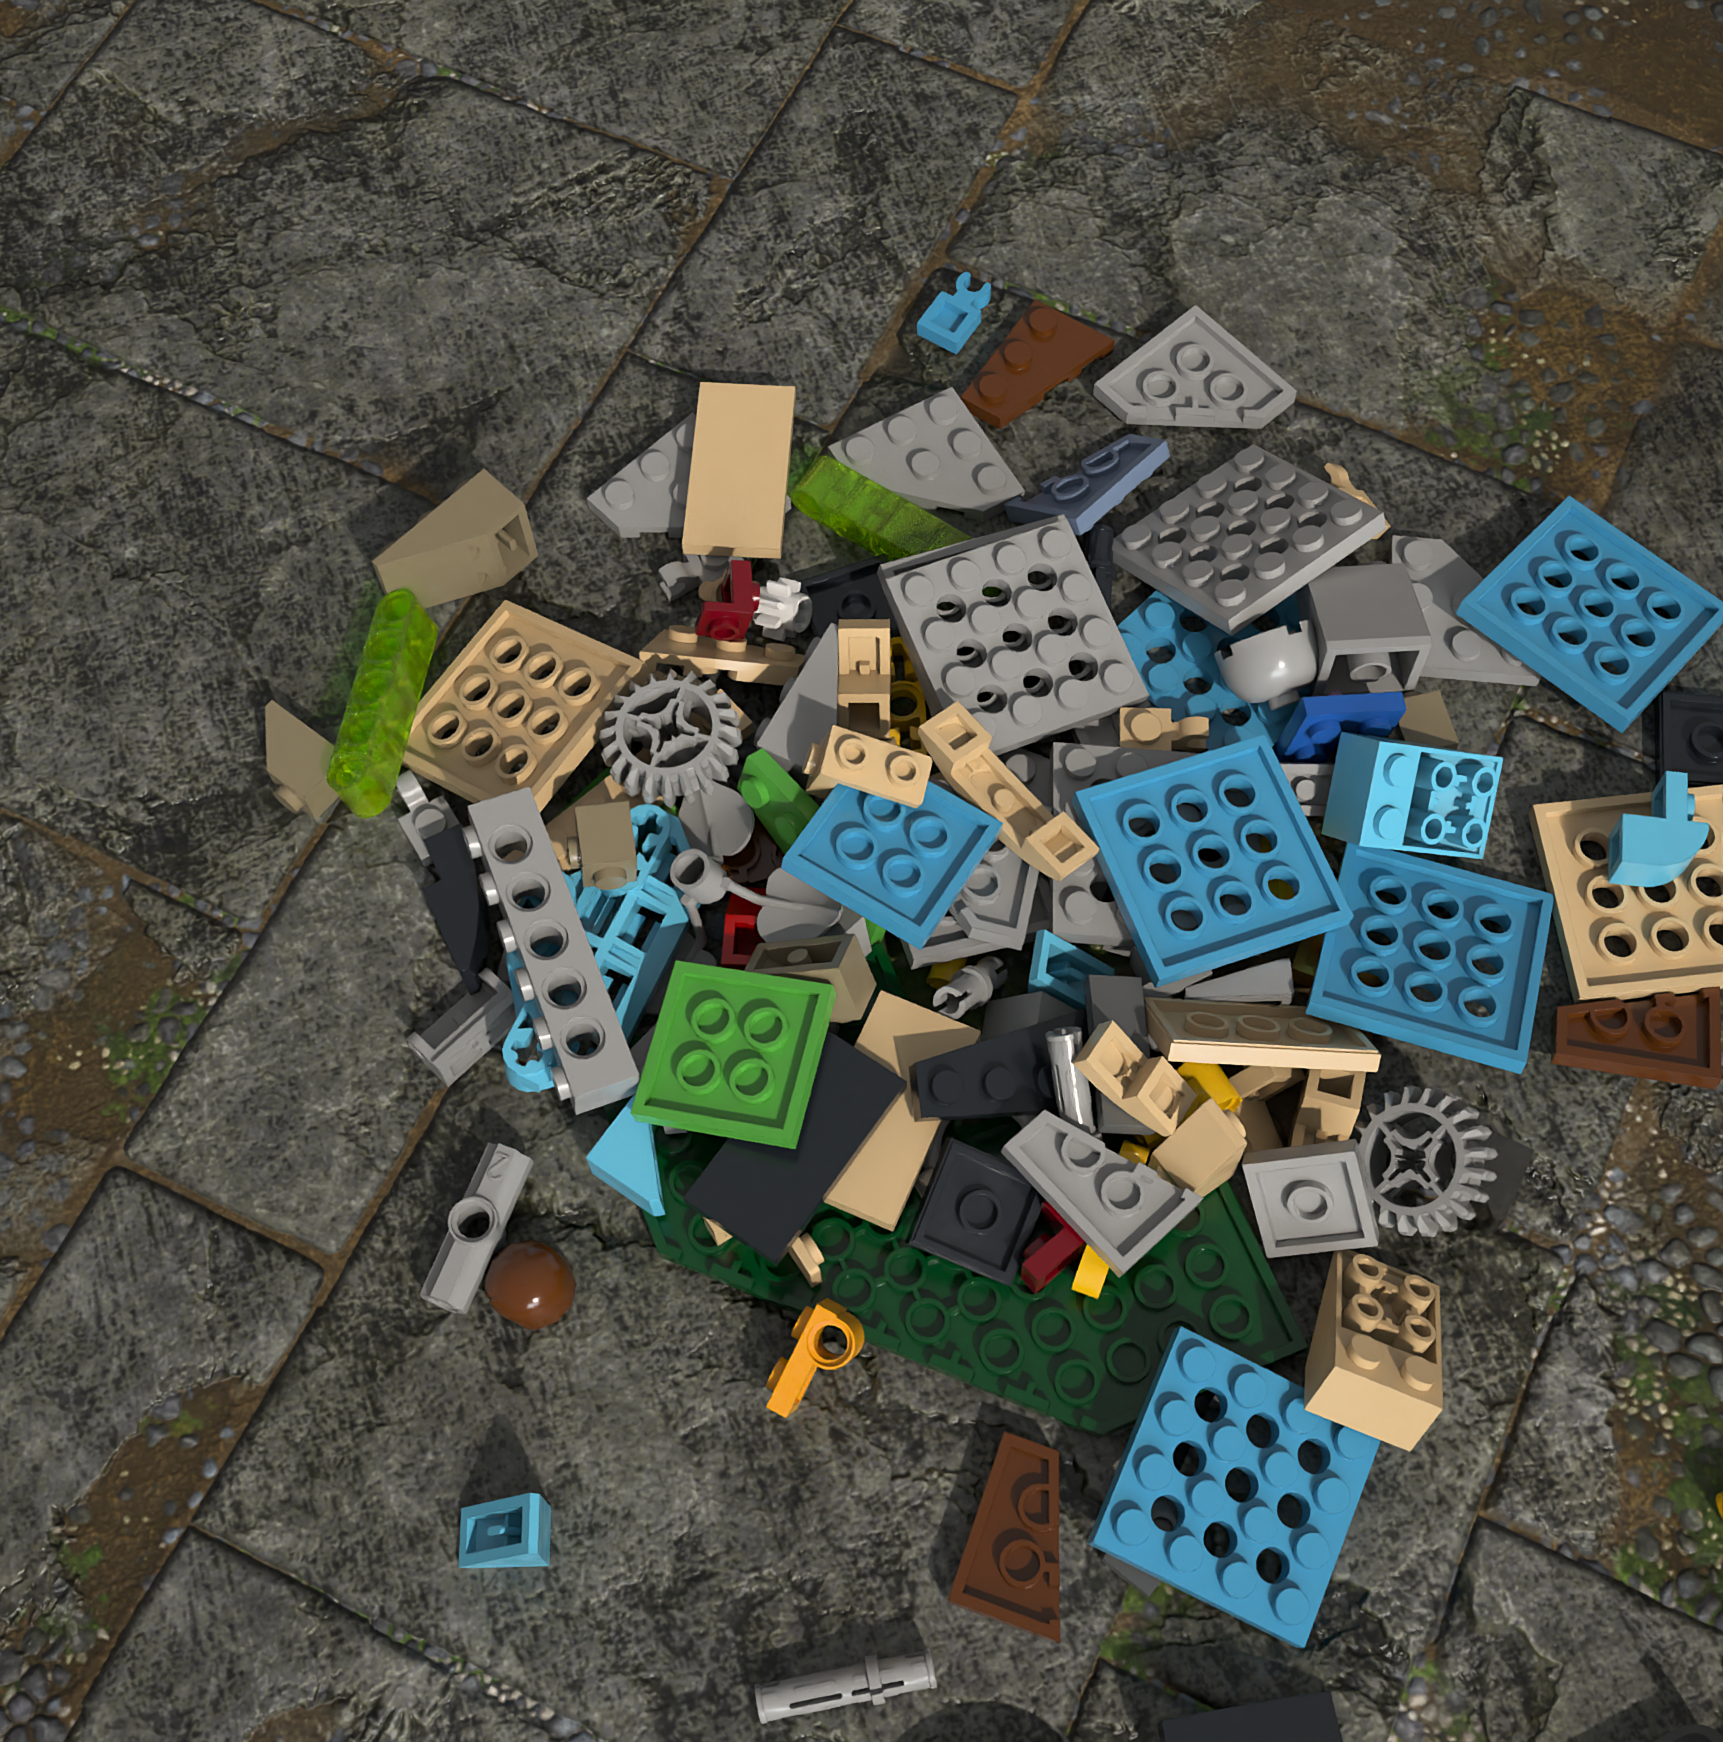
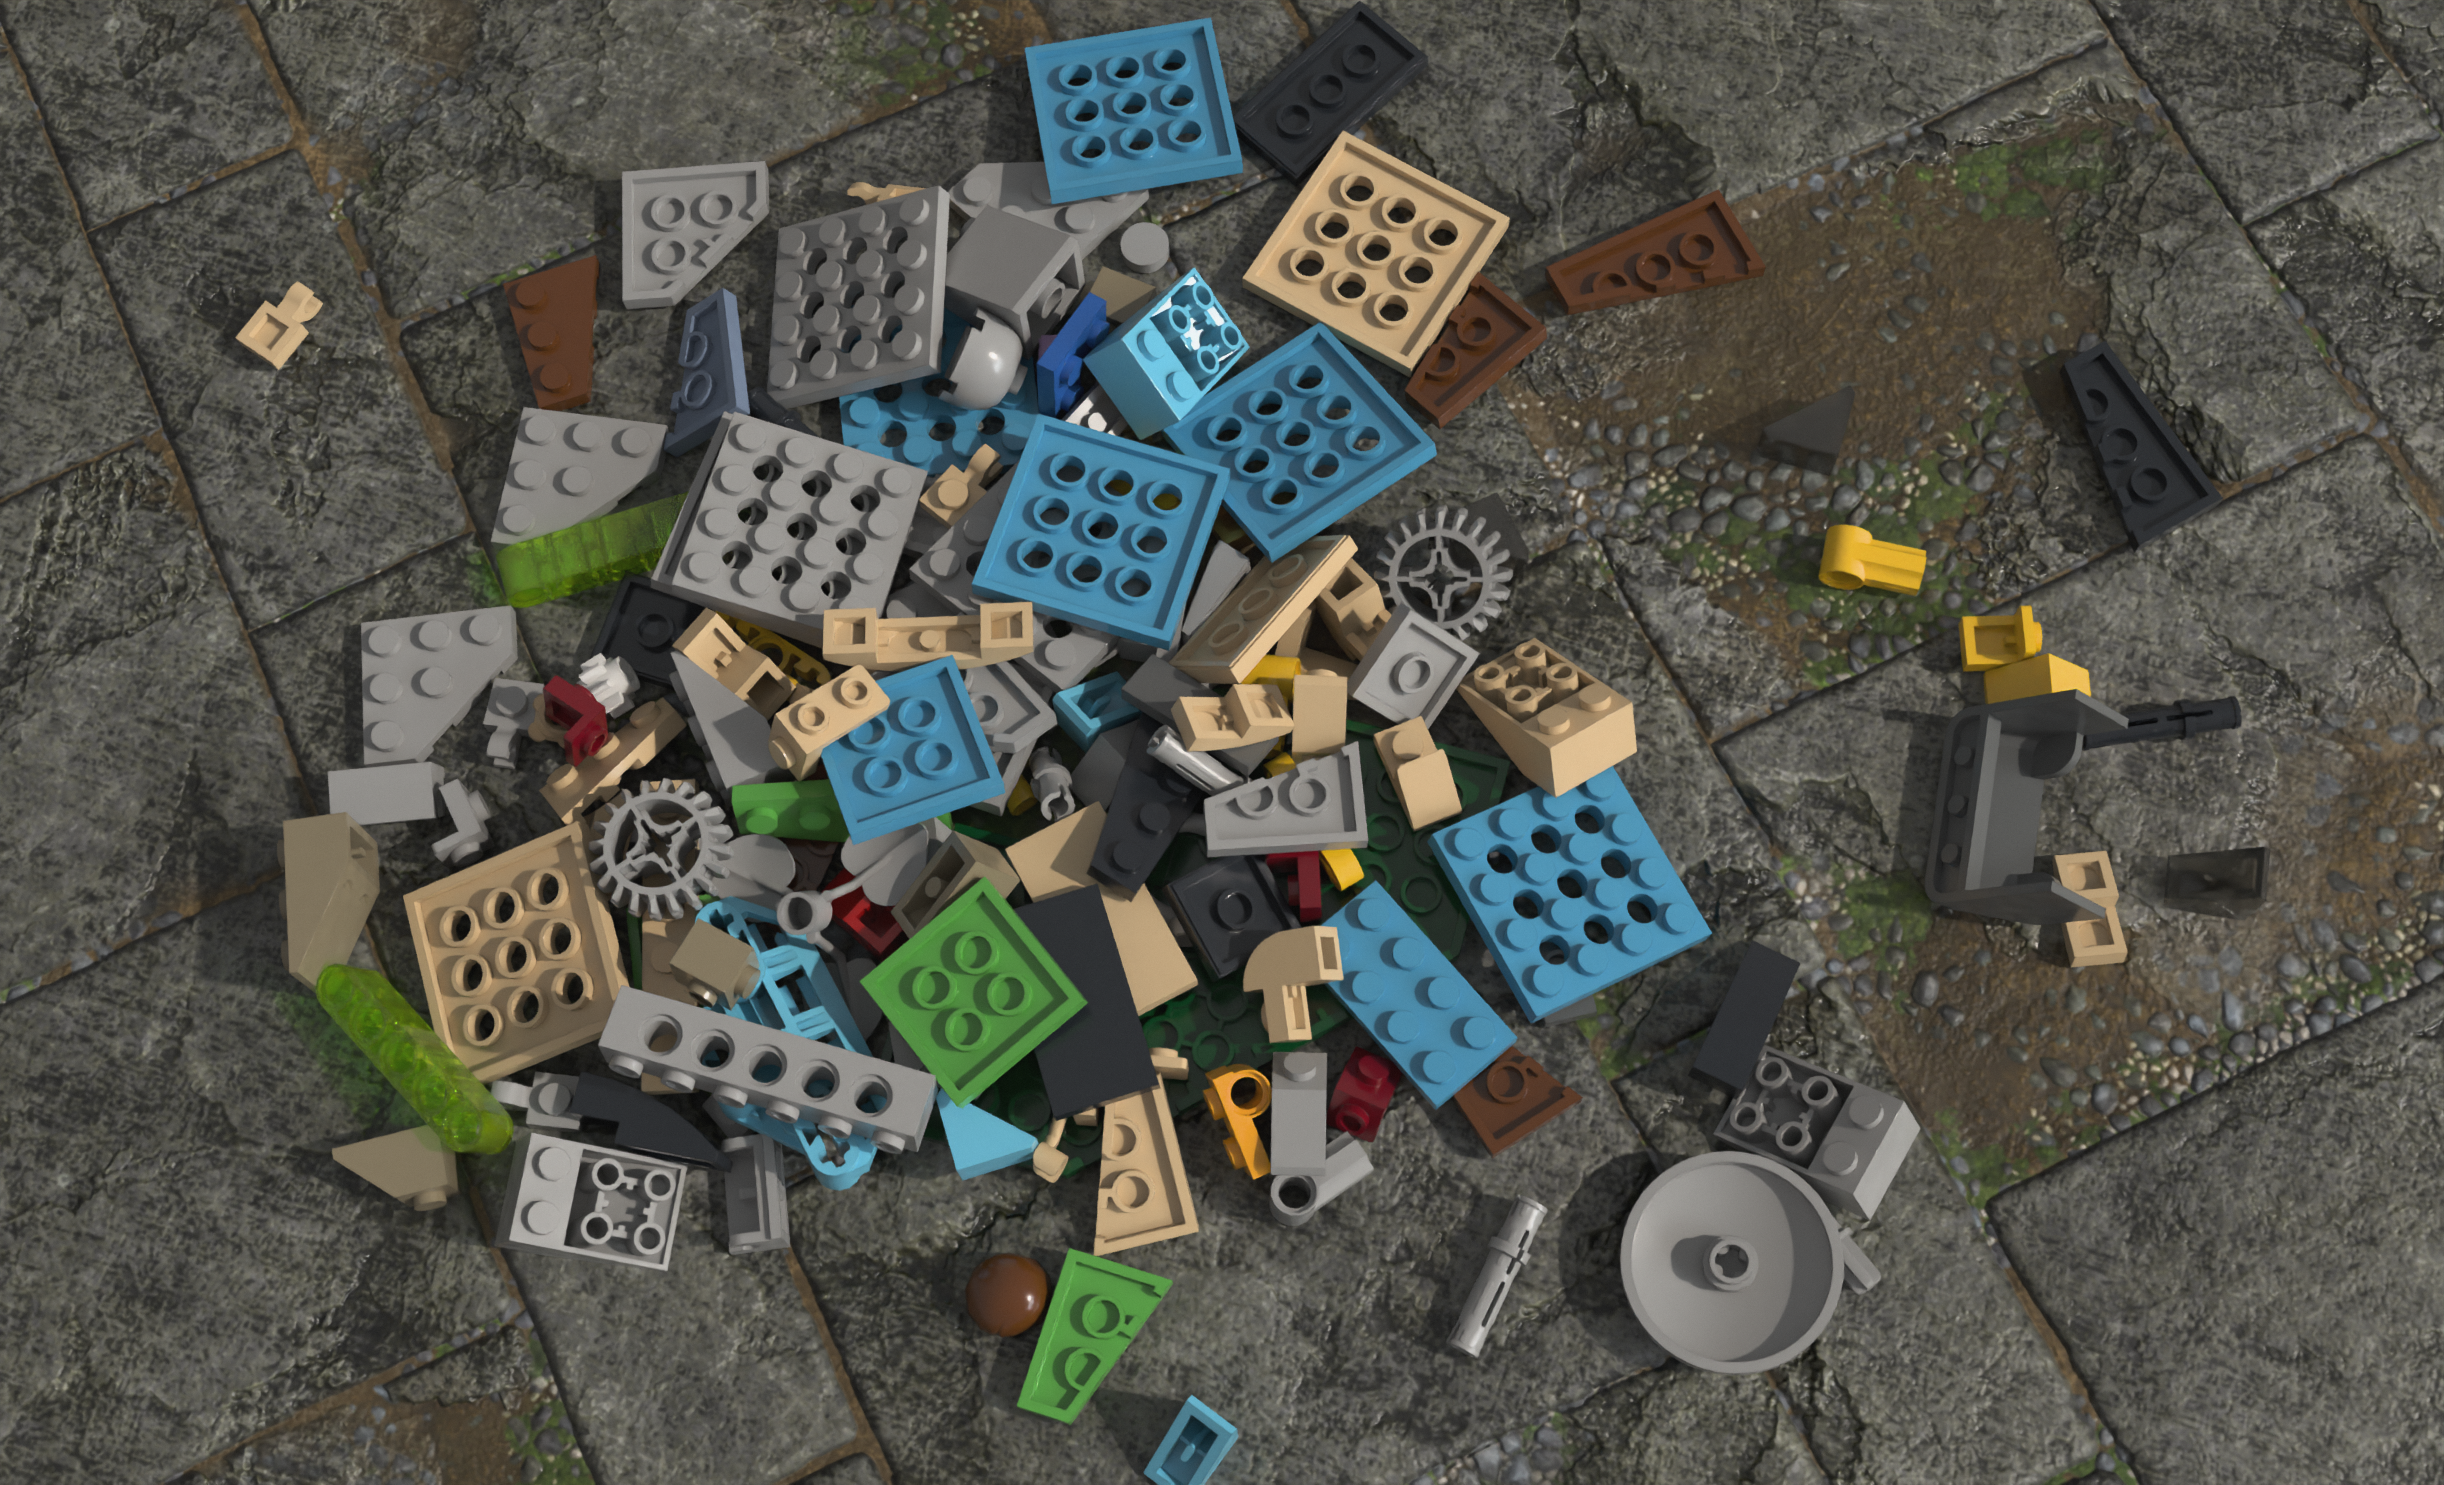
camera: 50 degrees left, 5 degrees up
(370, 916) = (590, 1203): none -> light grey slope
(463, 1259) = (948, 1332): light grey piece -> none
(541, 1369) = (1086, 1331): none -> bright green wing
(575, 530) = (388, 793): none -> light grey hinge
(600, 598) = (468, 815): none -> light grey bracket
(656, 1224) = (1047, 1160): none -> tan hand
(703, 1313) = (1141, 1176): none -> tan wing
(739, 470) = (454, 624): tan tile -> none
(818, 1467) = (1344, 1167): none -> light grey piece
(850, 1402) = (1298, 1113): none -> light grey slope
(865, 187) = (277, 331): none -> tan plate
(917, 1446) = (1363, 1094): none -> dark red bracket
(954, 318) = (461, 356): dark azure plate -> none
(958, 1292) = (1281, 971): none -> tan brick
(1026, 1415) = (1413, 998): none -> dark azure plate
(1227, 1275) = (1418, 773): none -> tan slope
(1490, 714) = (1144, 247): none -> light grey tile
(1658, 847) = (1349, 219): medium azure brick -> none

